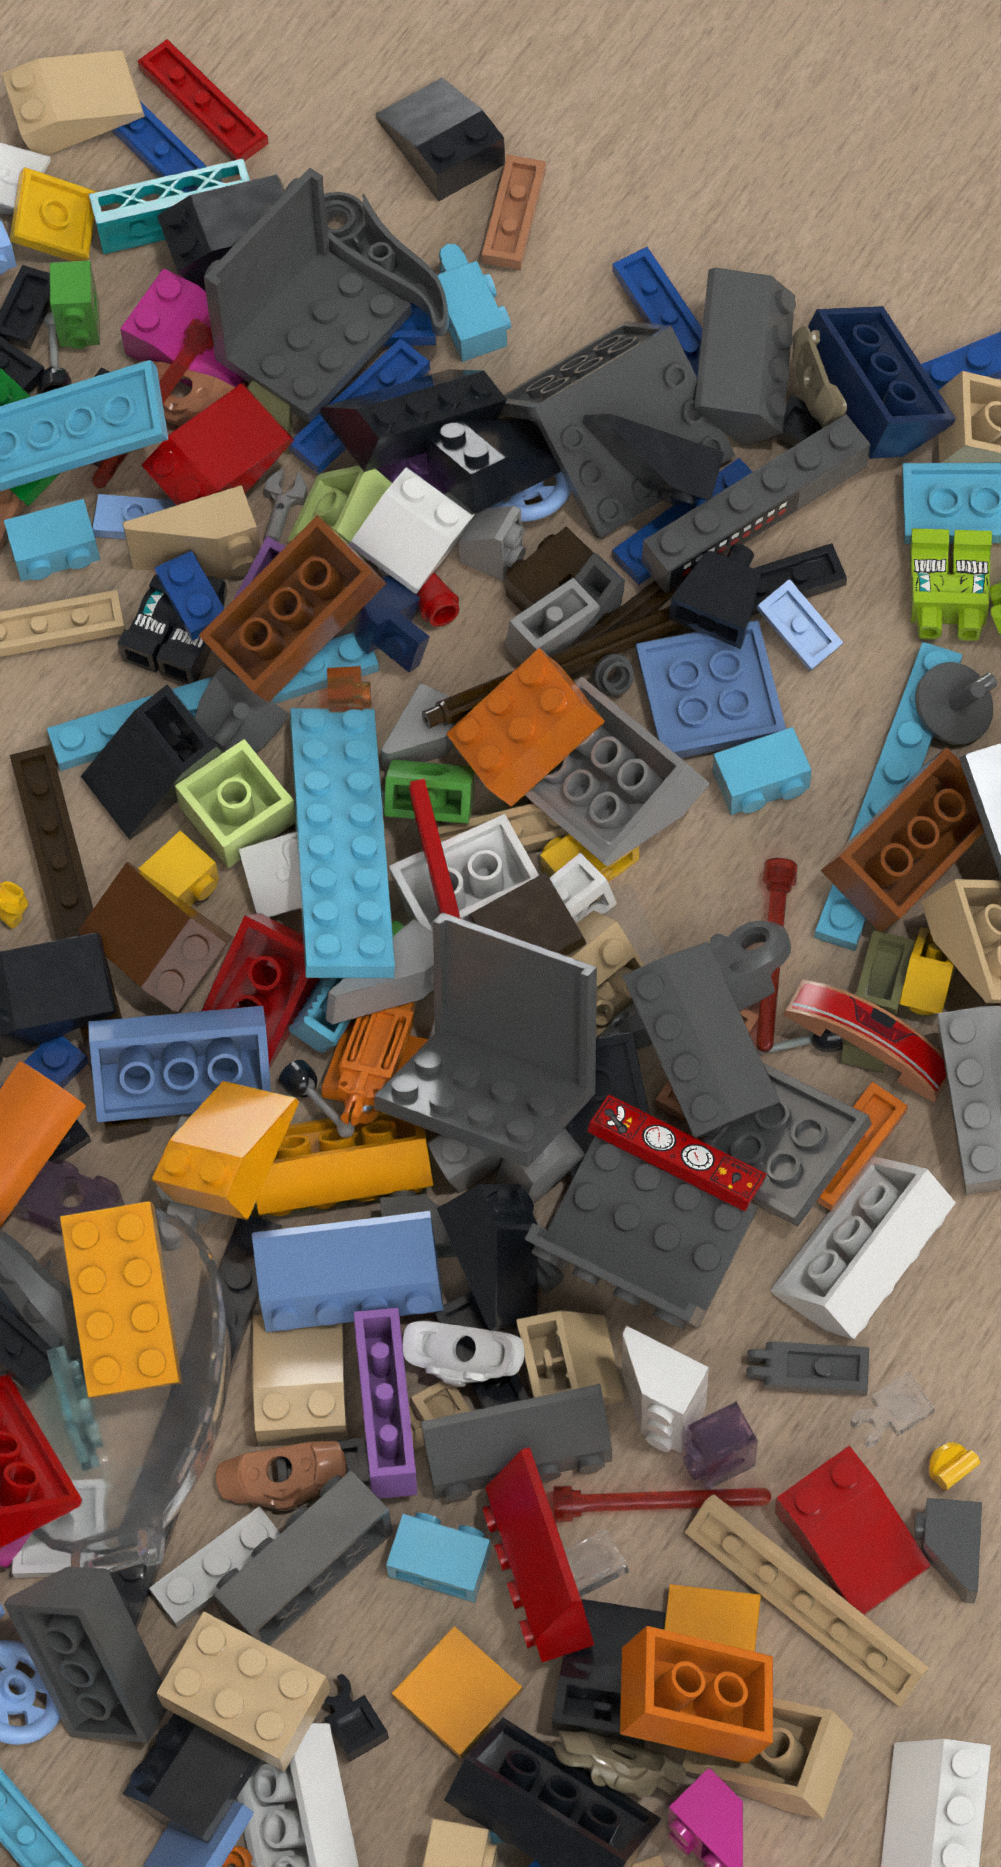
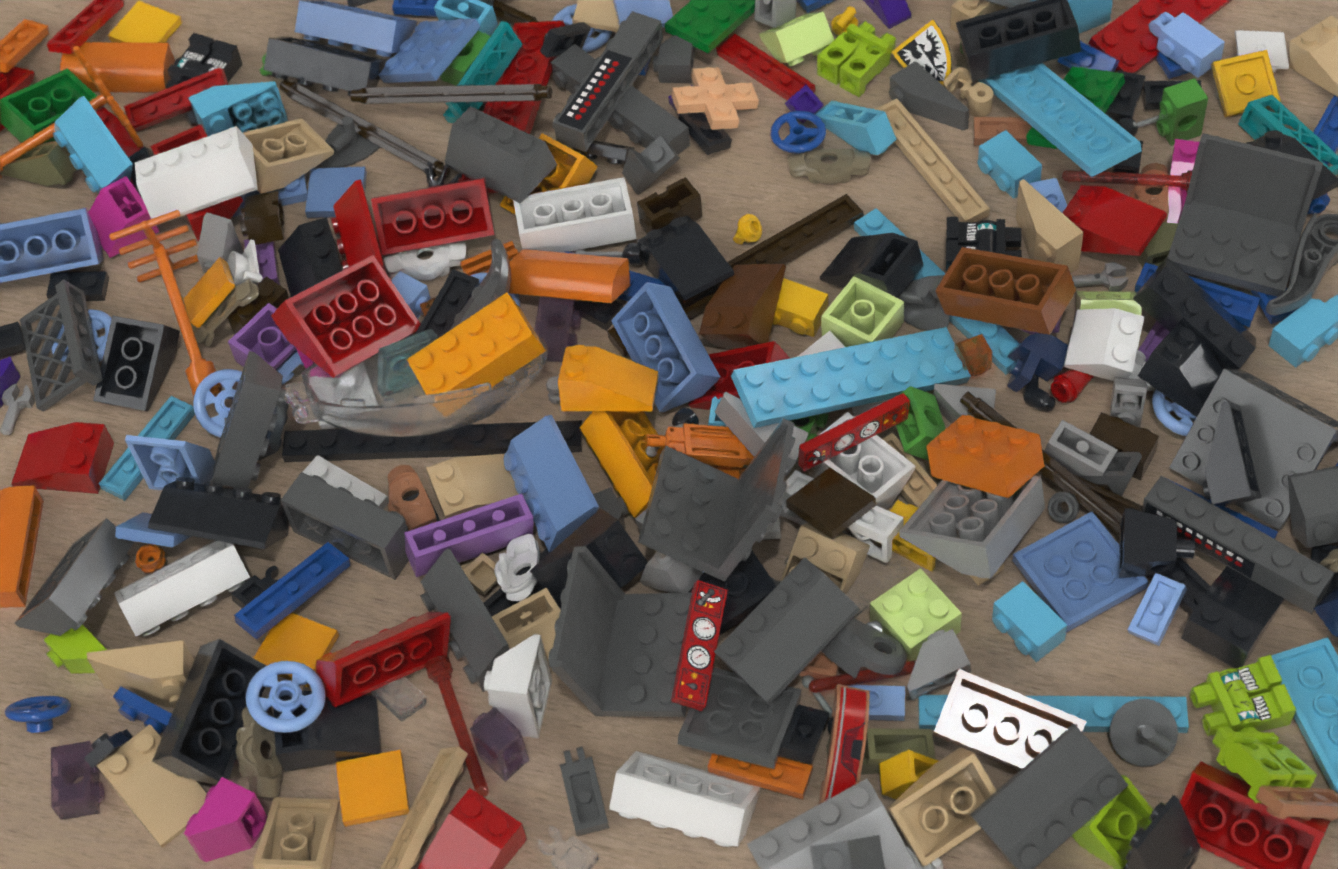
camera: 75 degrees right, 10 degrees down
(93, 1788) = (167, 459): none -> light blue slope
(189, 592) = (1001, 236): blue plate -> none
(244, 1691) = (239, 507): tan brick -> none
(374, 1669) = (292, 590): none -> blue plate
(439, 1556) = (379, 602): medium azure brick -> none
(441, 644) = (1037, 397): none -> black arm
(587, 1666) = (287, 721): none -> light blue plate
(696, 1695) = (305, 771): orange brick -> none
(708, 892) = (914, 612): none -> yellowish green brick
(796, 888) = (937, 663): none -> light grey slope
(805, 964) = (885, 702): none -> light blue plate
(831, 1074) = (804, 734): none -> black plate
(845, 548) = (1231, 618): none -> black slope

